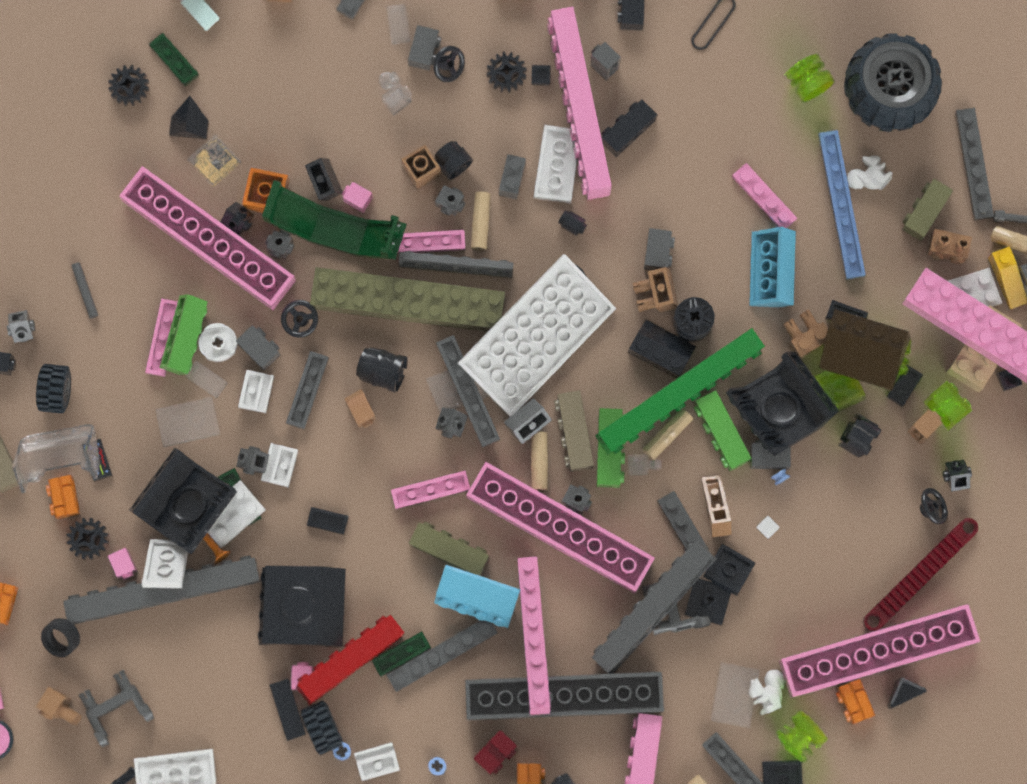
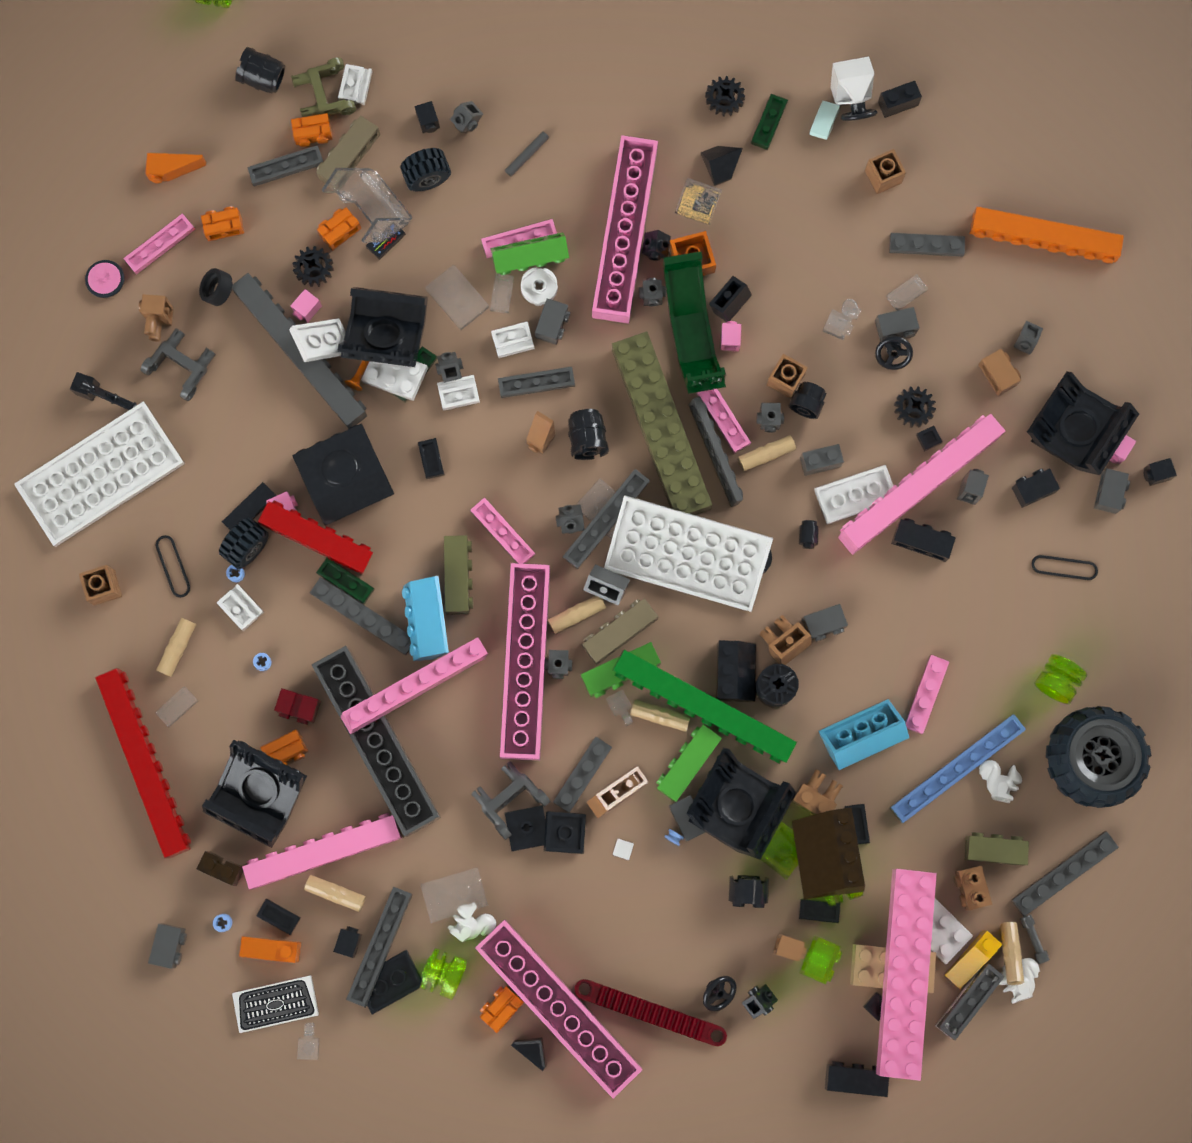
camera: 65 degrees right, 0 degrees up
(306, 317) = (600, 348): black piece -> none
(653, 607) = (494, 780): dark grey brick -> none

